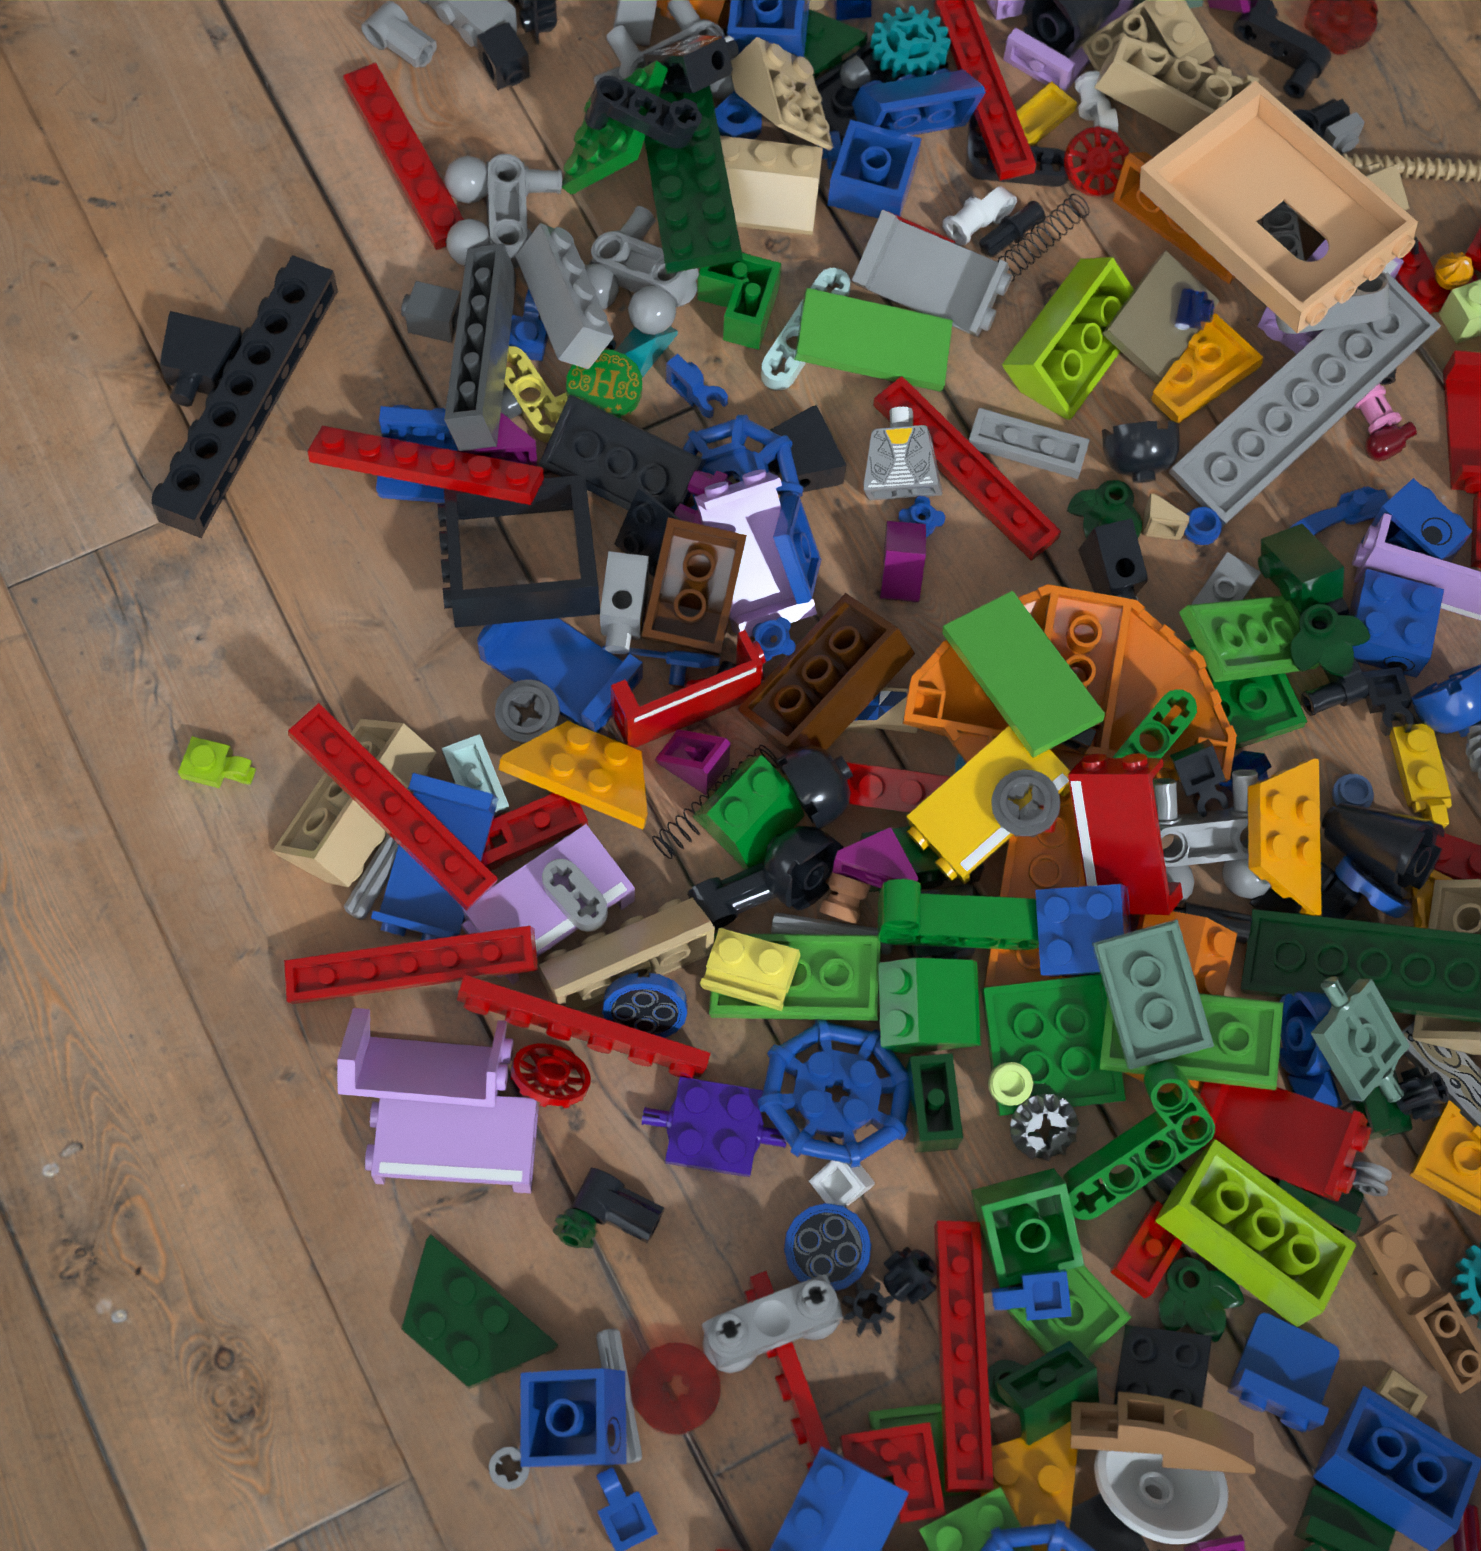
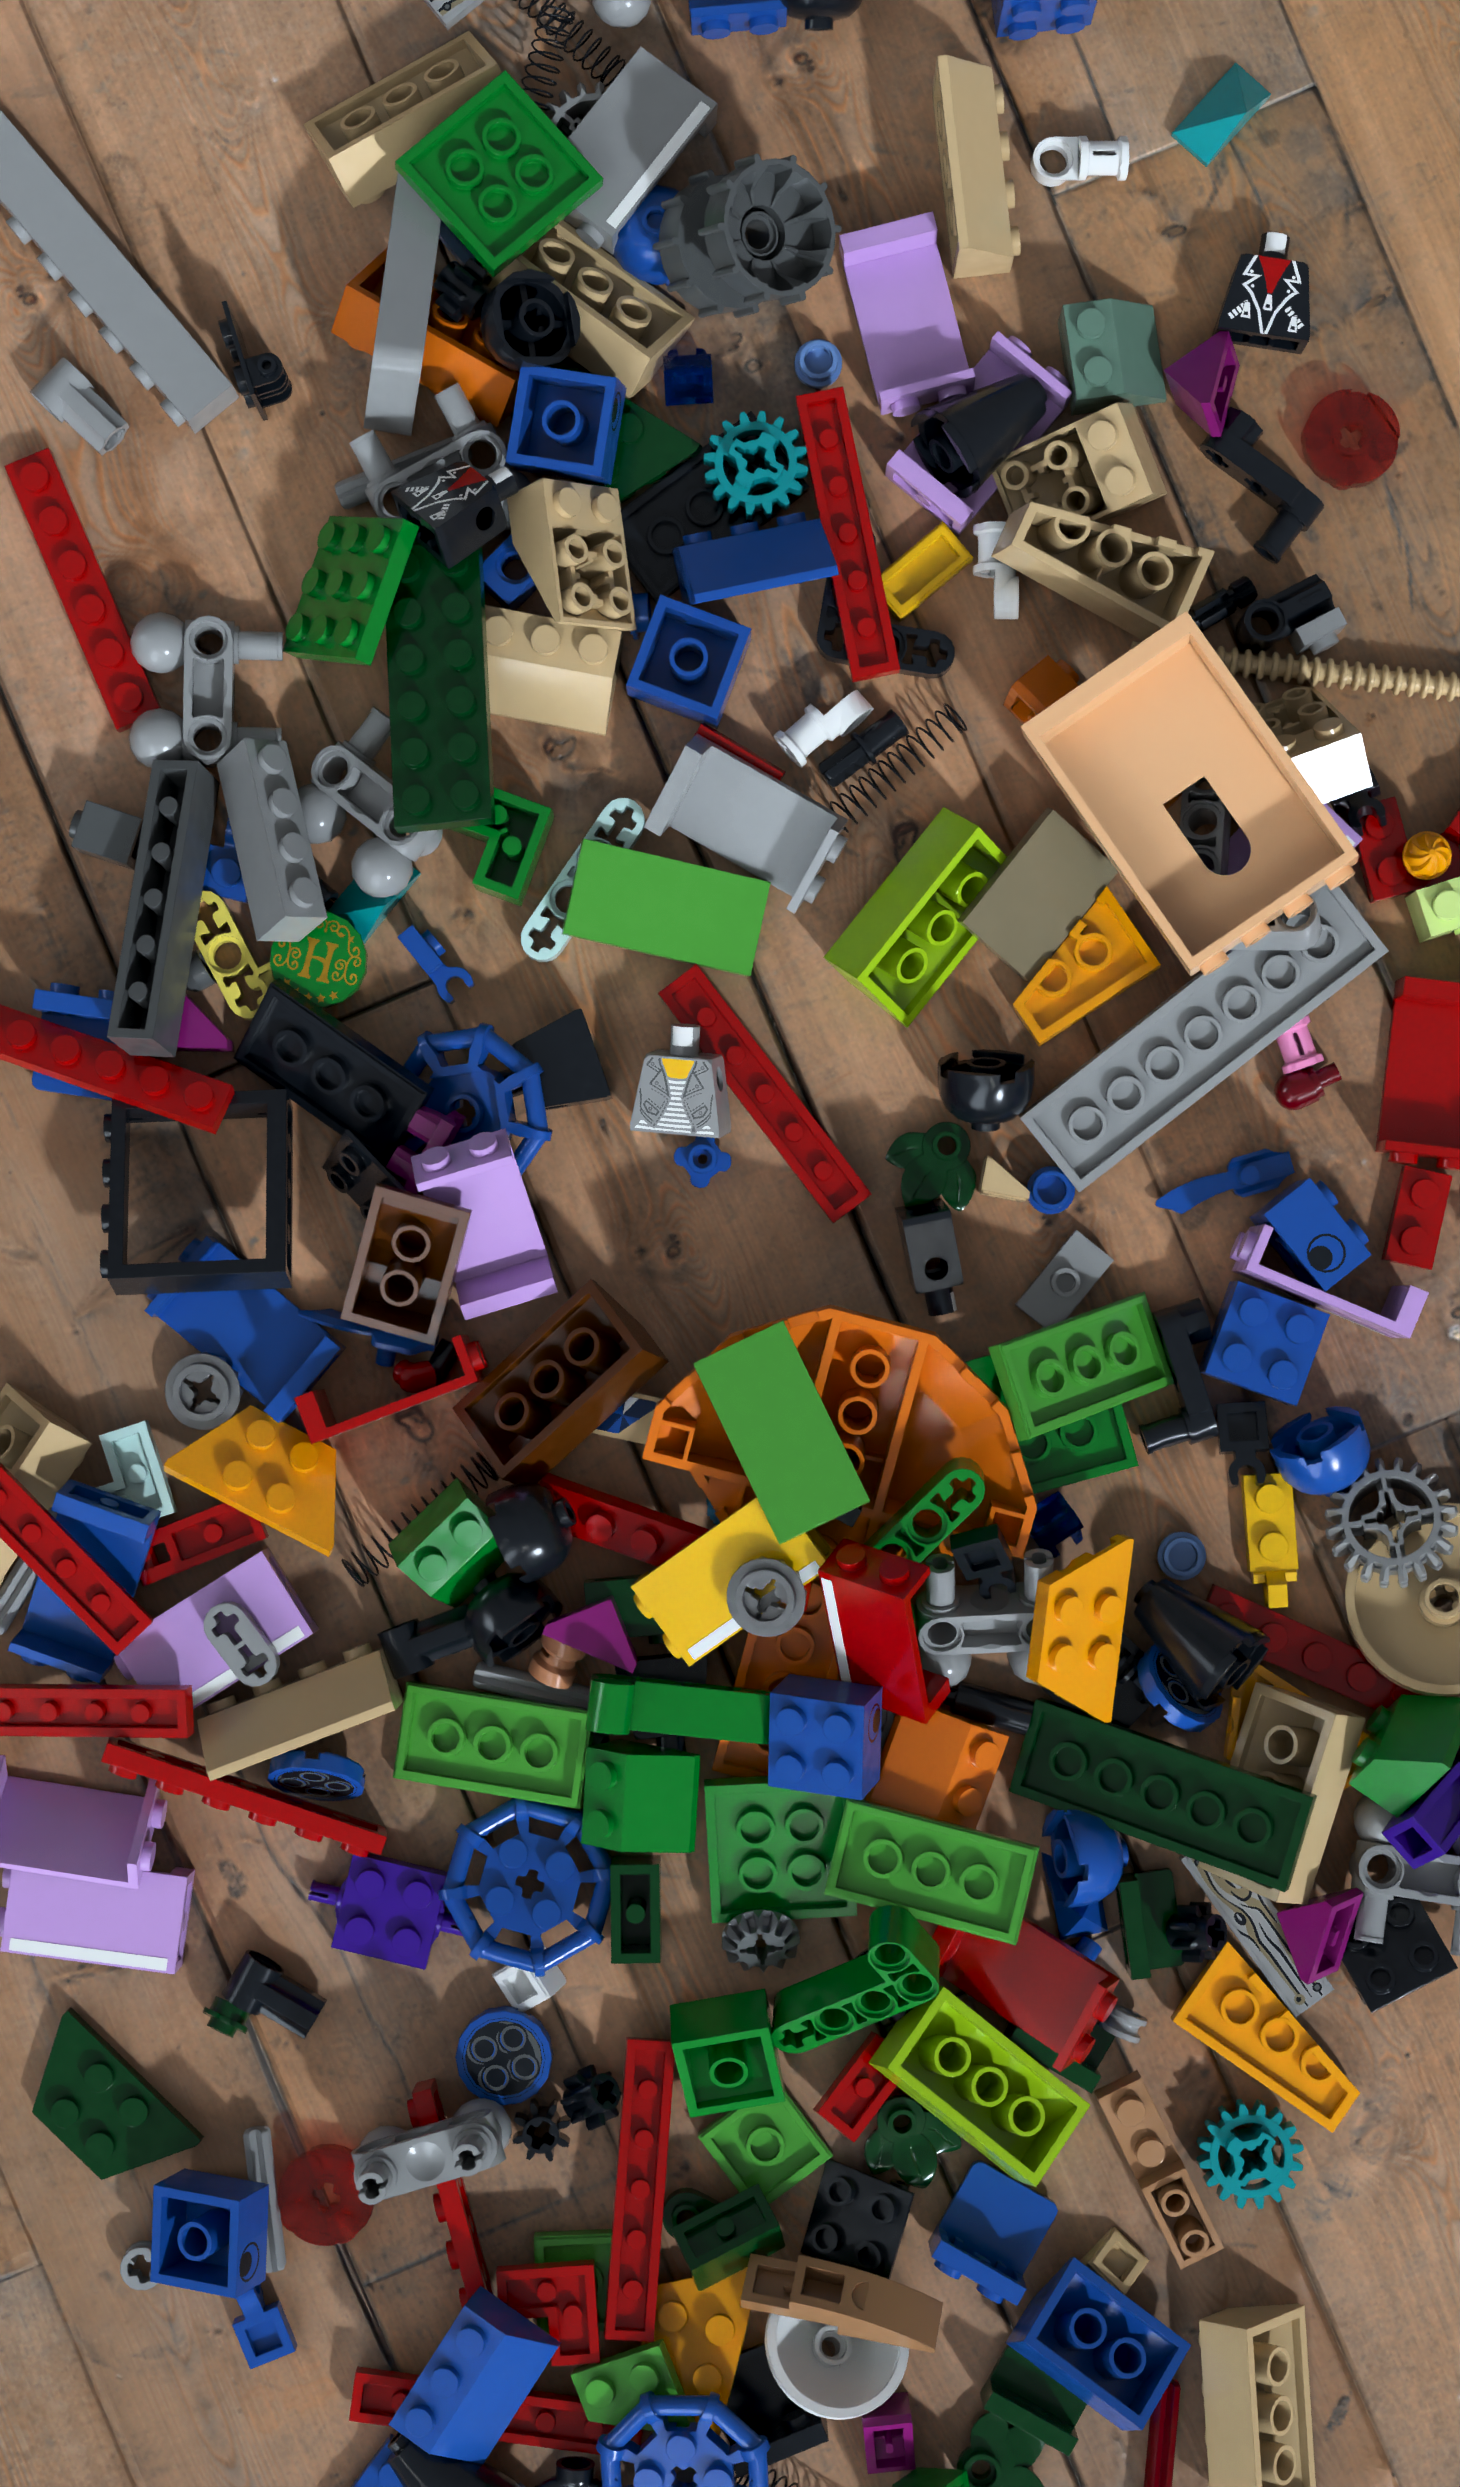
camera: 10 degrees right, 20 degrees up
(503, 56) = (216, 450): black brick -> none
(550, 1074) = (206, 1846): red wheel -> none
(621, 100) = (350, 597): black beam -> none
(624, 600) = (333, 1247): light grey torso -> none
(695, 758) = (396, 1463): magenta slope -> none
(750, 969) = (441, 1736): light yellow plate -> none
(779, 628) = (490, 1337): blue plate -> none
(797, 548) = (537, 1215): blue tile -> none
(854, 73) = (677, 506): dark grey hinge -> none
(903, 561) = (672, 1217): magenta slope -> none
(1010, 1083) = (725, 1893): yellowish green tile -> none
(1028, 443) = (846, 1064): light grey plate -> none
(1042, 1295) = (731, 2133): blue plate -> none
(1095, 161) = (986, 654): red wheel -> none
(1152, 994) = (886, 1833): sand green tile -> none
(1194, 310) = (1080, 894): clear blue plate -> none
(1301, 567) = (1160, 1268): dark green brick -> none
(1327, 646) = (1177, 1381): dark green plate -> none
(1360, 1040) = (1126, 1888): sand green plate -> none

